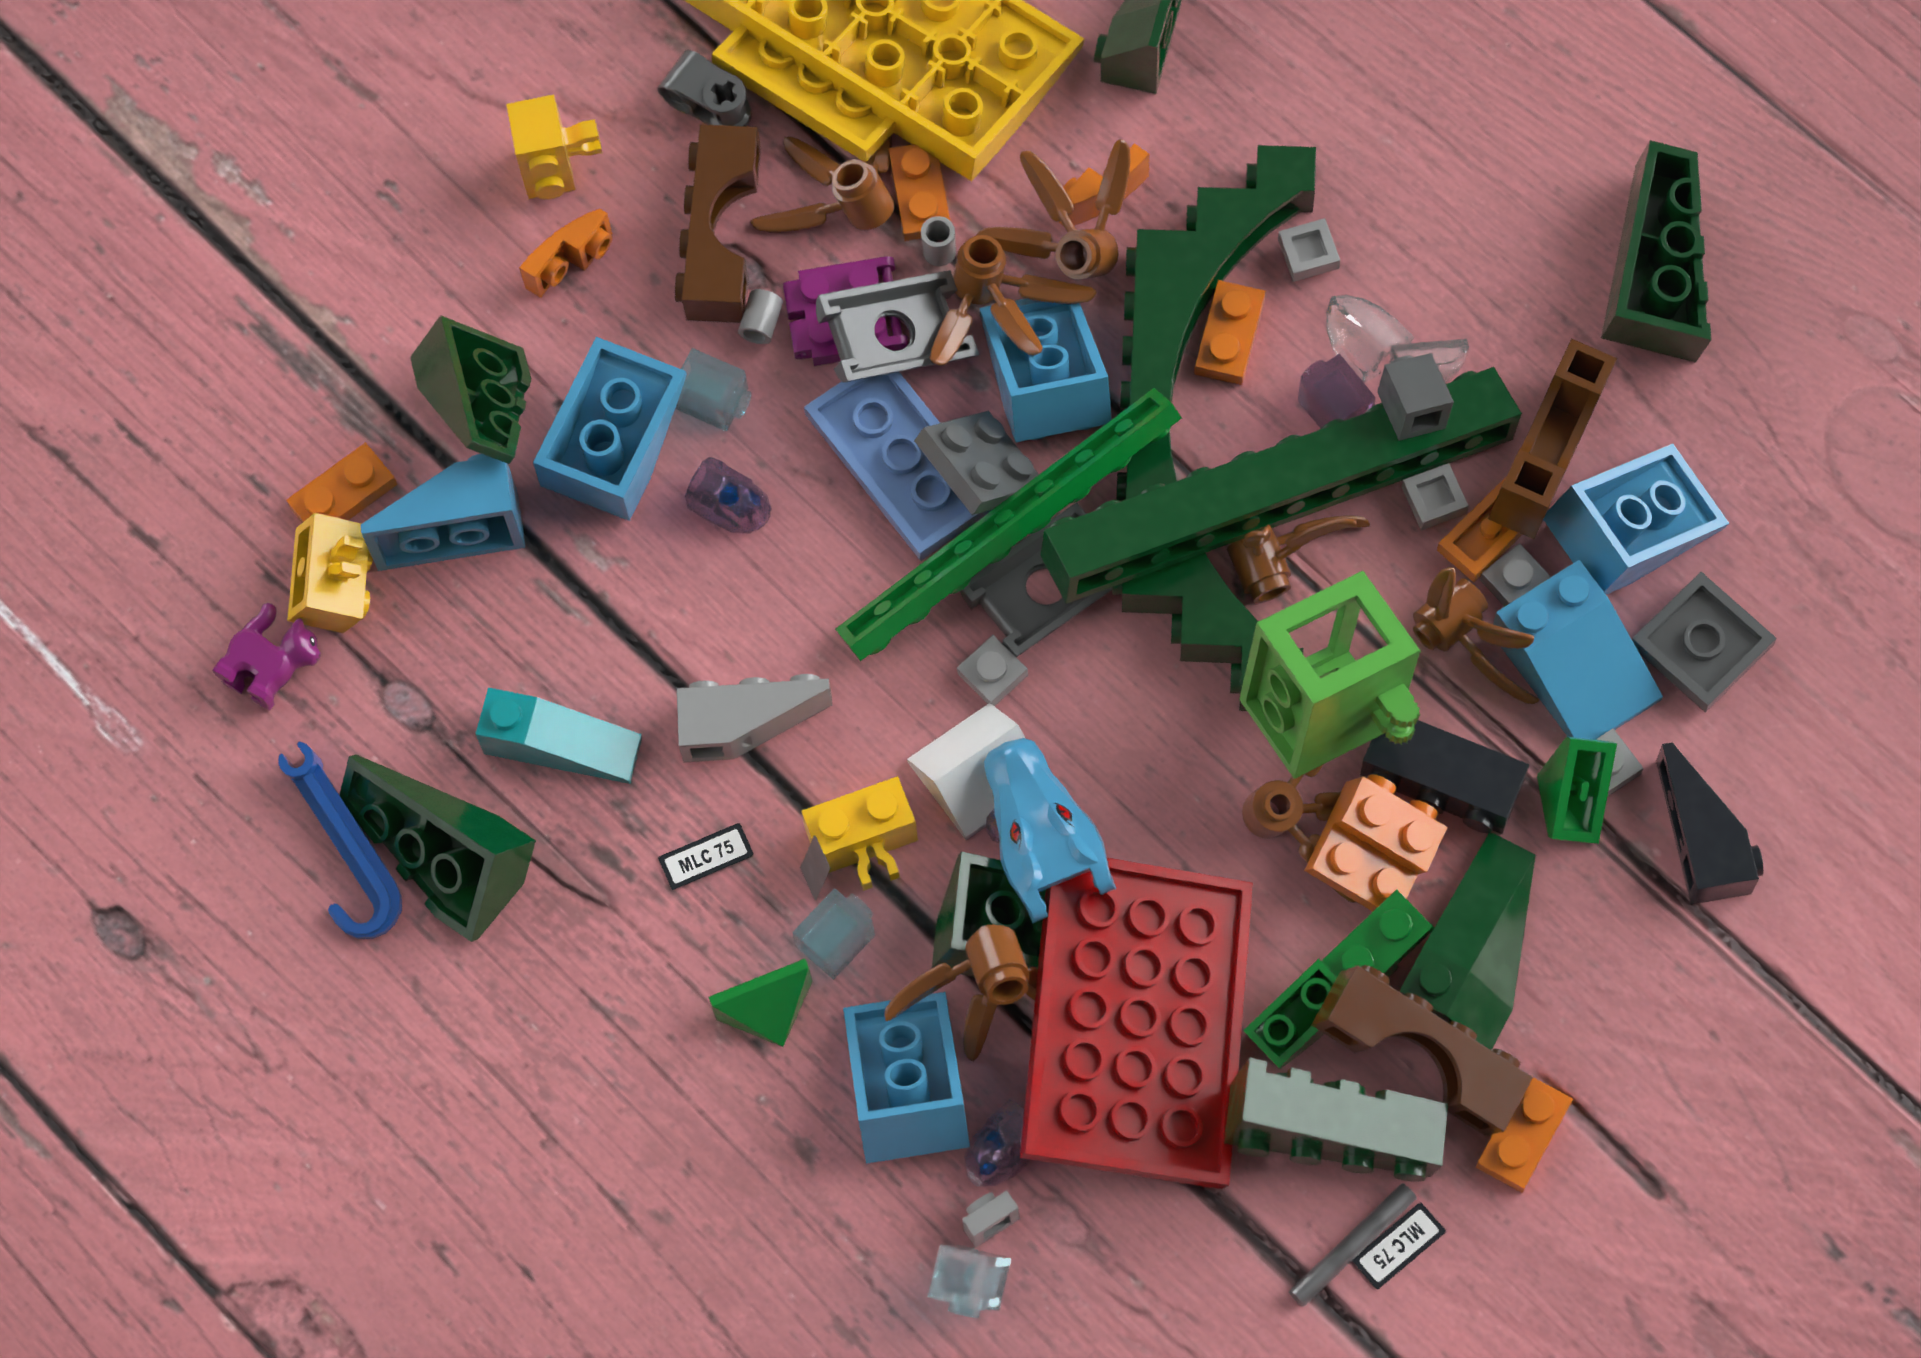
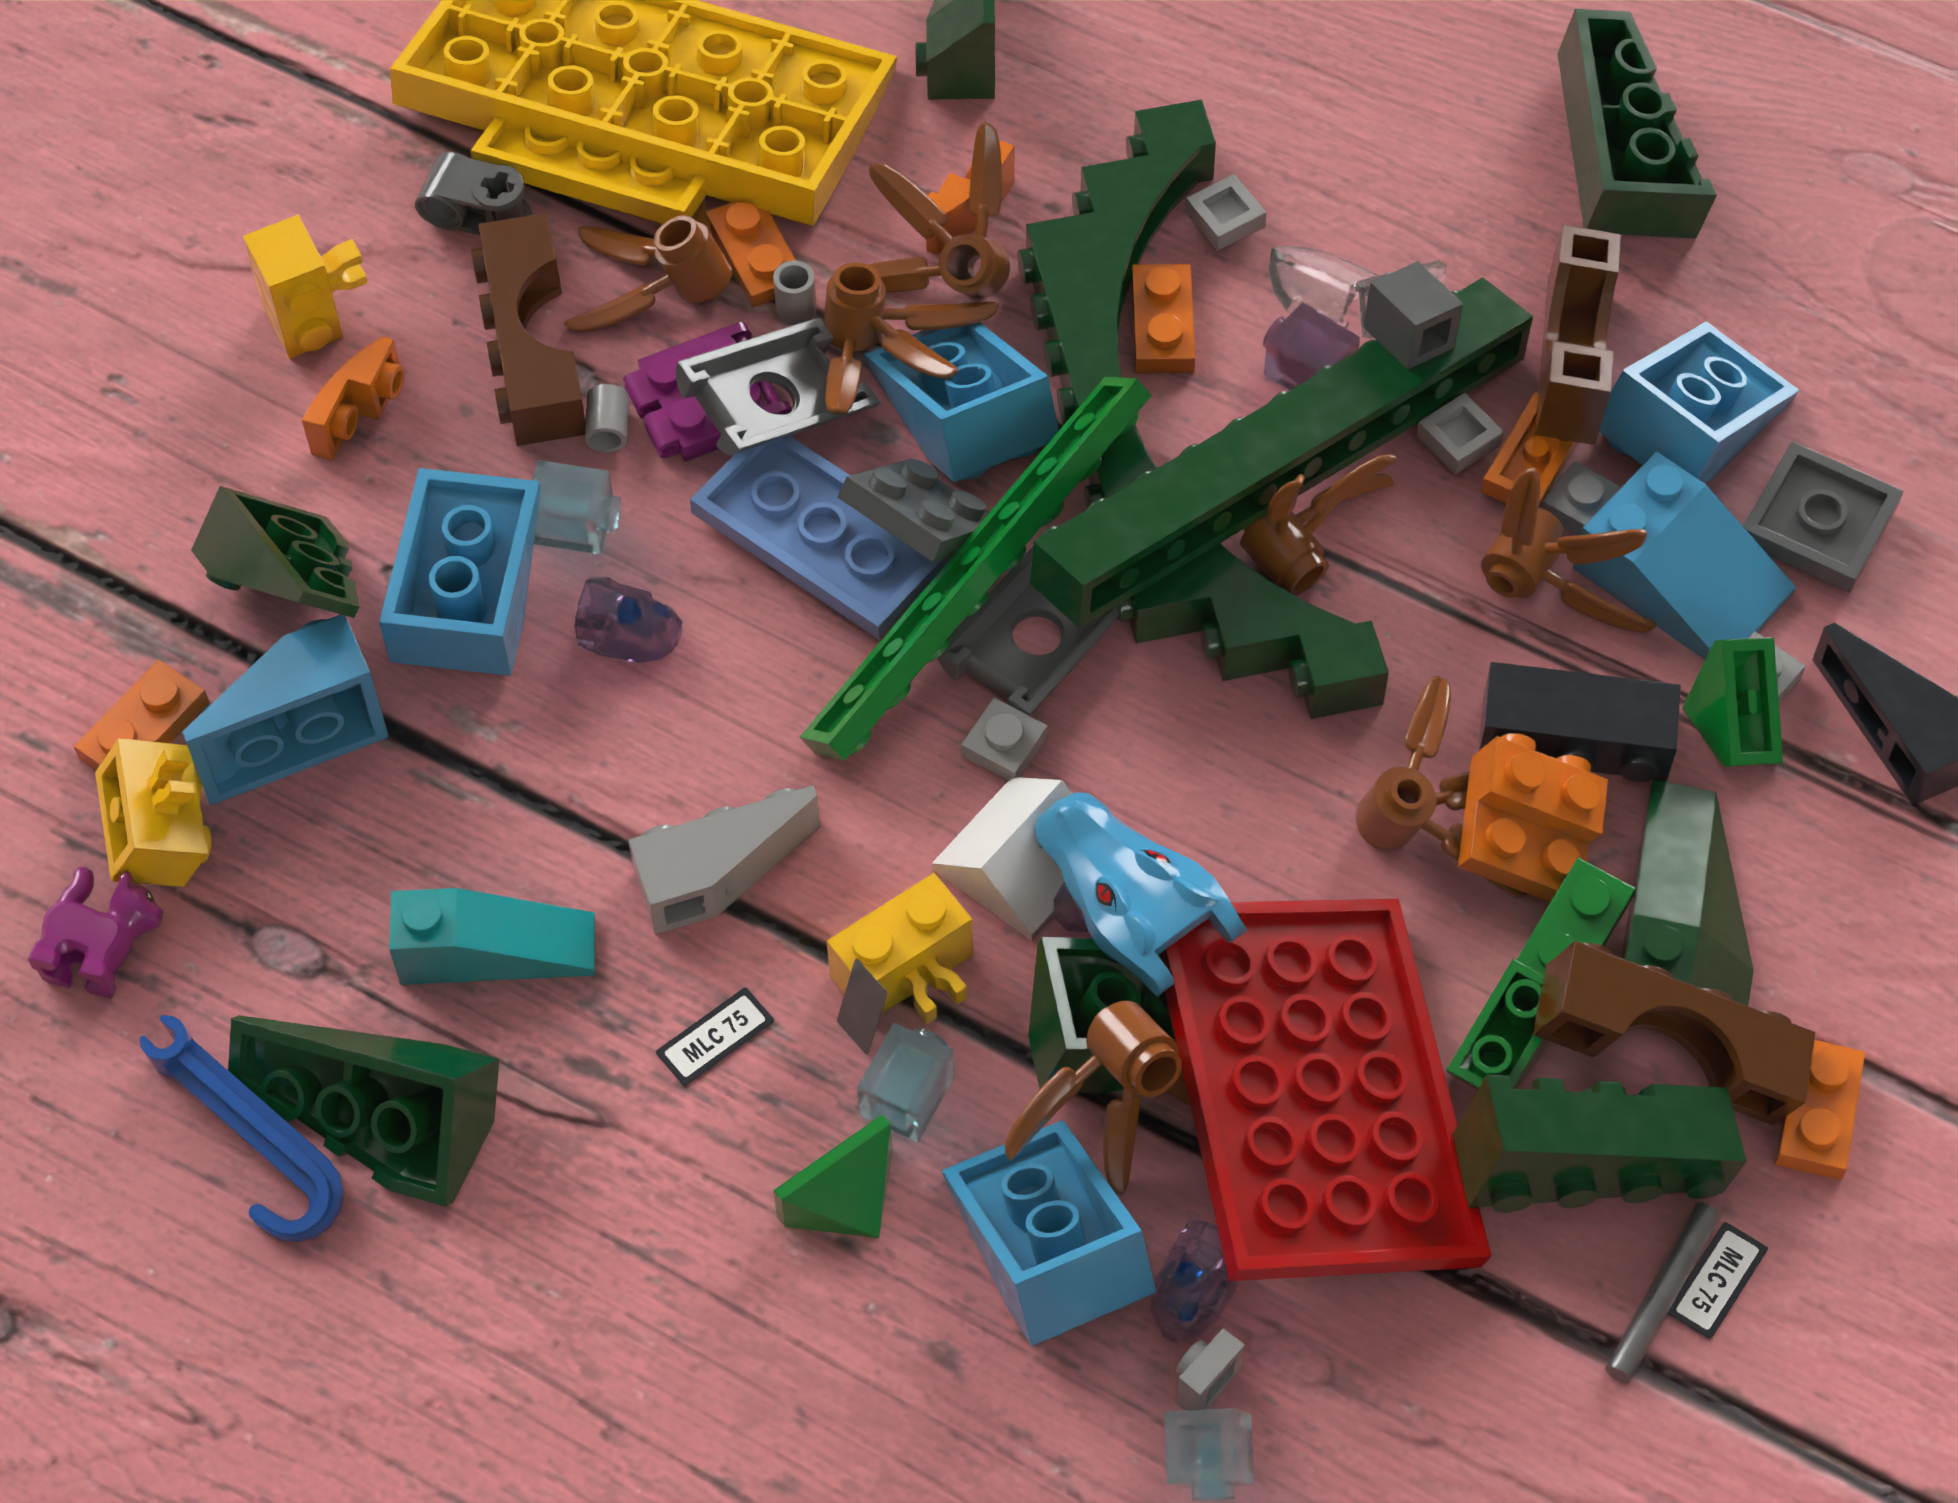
camera: 20 degrees left, 10 degrees down
(1329, 700) = (1425, 663): bright green piece -> none

